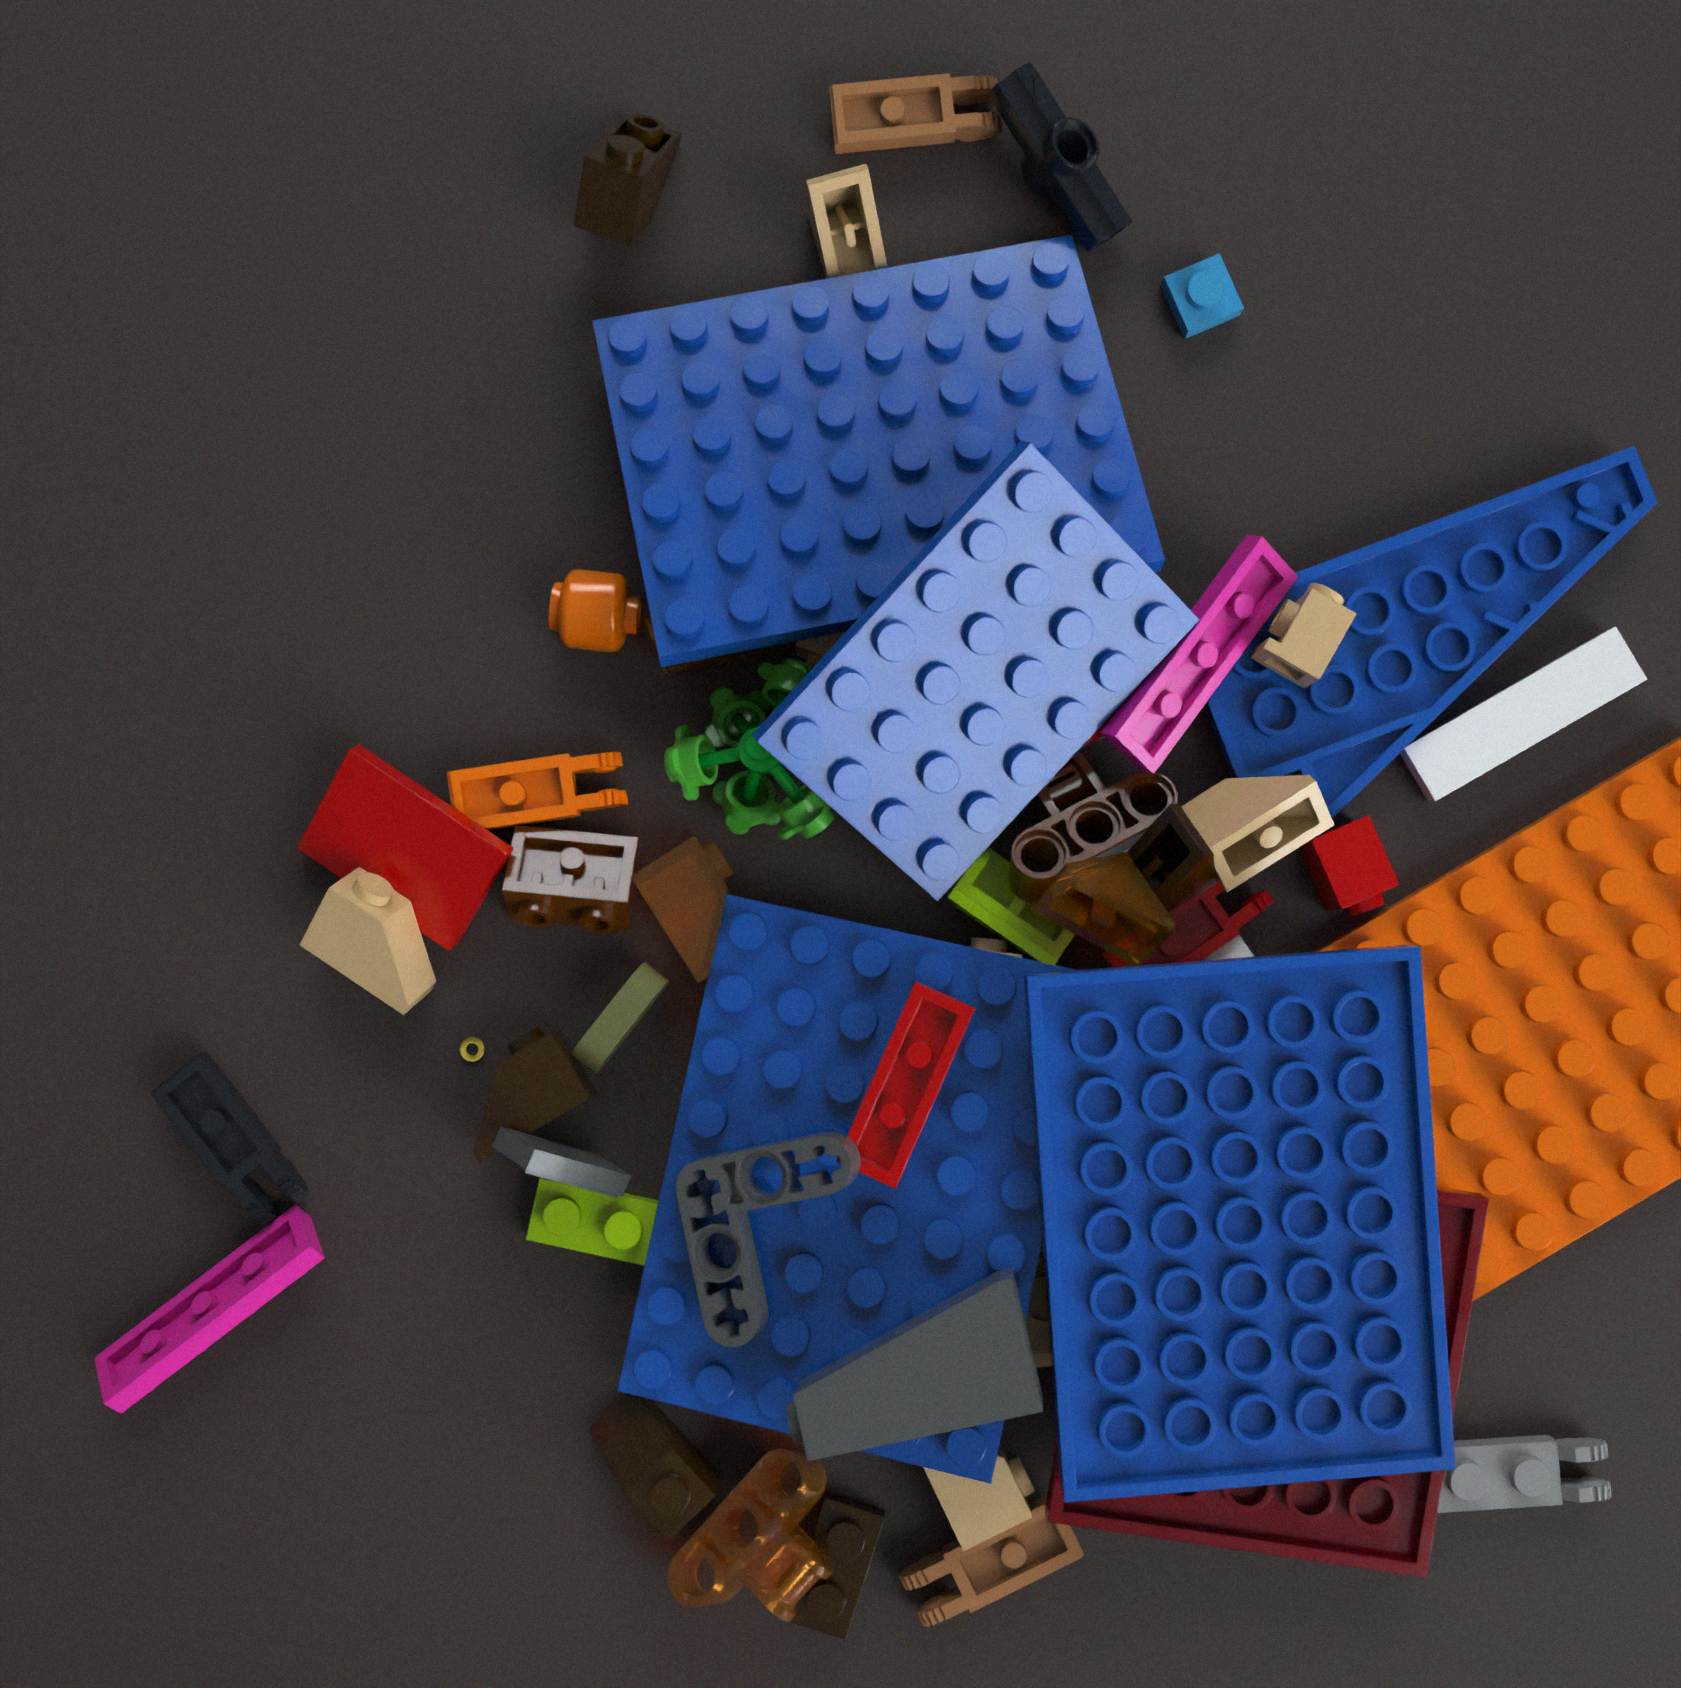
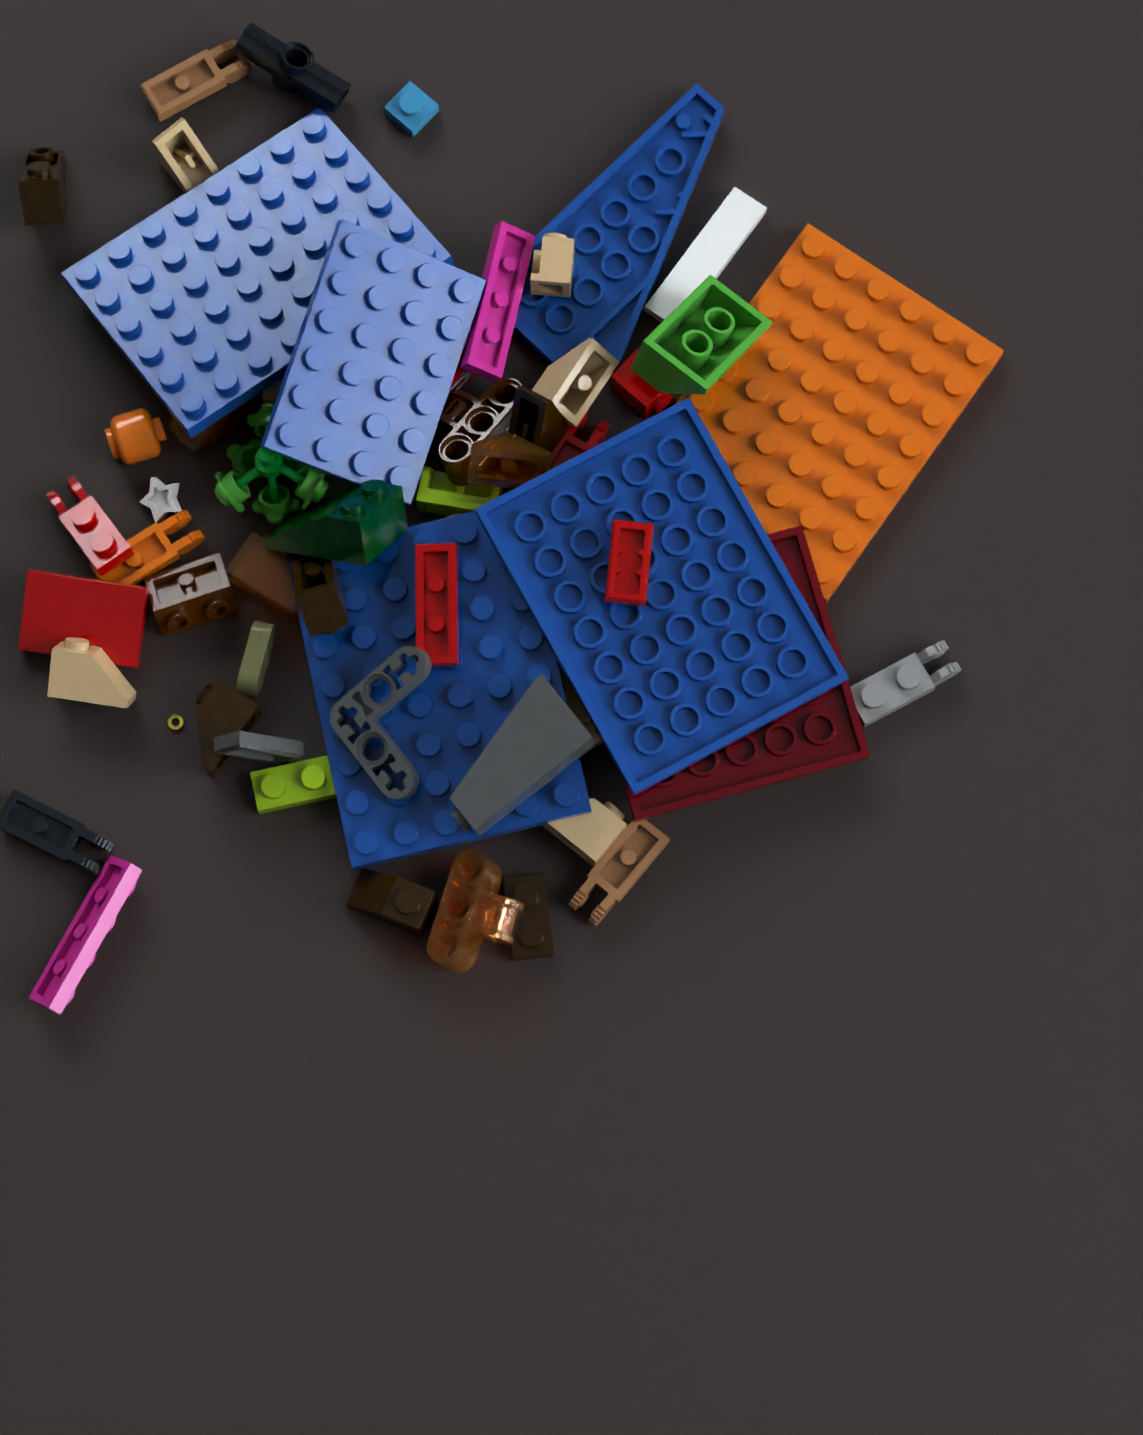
camera: 25 degrees left, 10 degrees down
(471, 722) = (91, 529): none -> hinge
(592, 720) = (161, 499): none -> white piece
(746, 980) = (319, 594): none -> dark brown slope
(824, 898) = (346, 525): none -> dark green slope
(1217, 1167) = (629, 563): none -> red plate
(1471, 859) = (699, 340): none -> bright green slope

